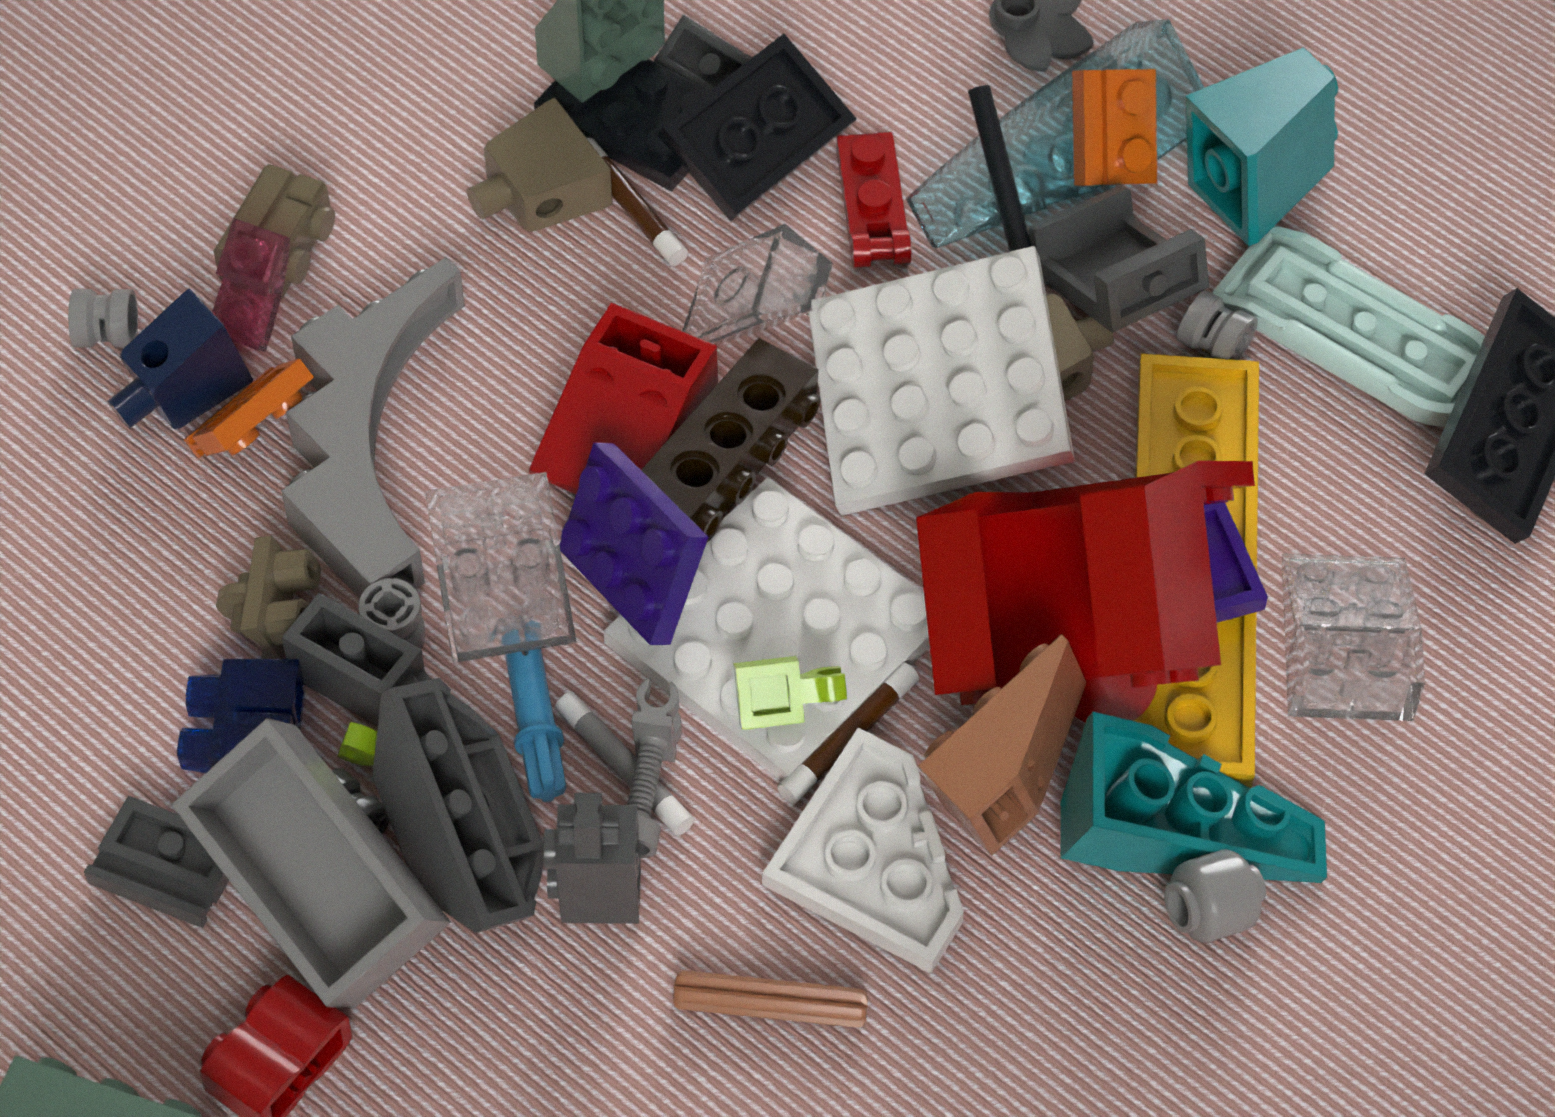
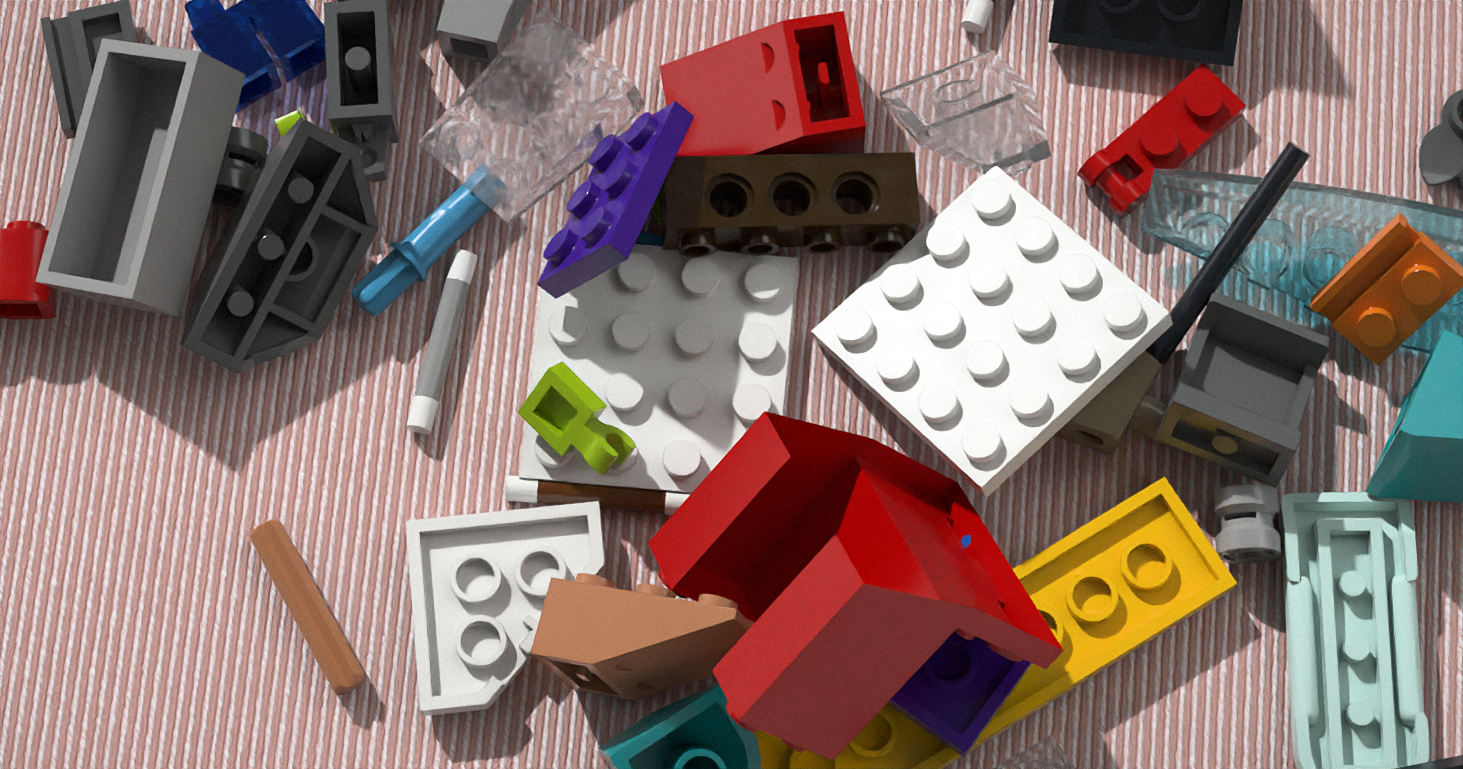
camera: 55 degrees right, 15 degrees up
(394, 607) = (431, 83): light grey wheel -> none
(594, 861) = (306, 388): dark grey hinge -> none
(655, 740) = (376, 393): light grey bar -> none

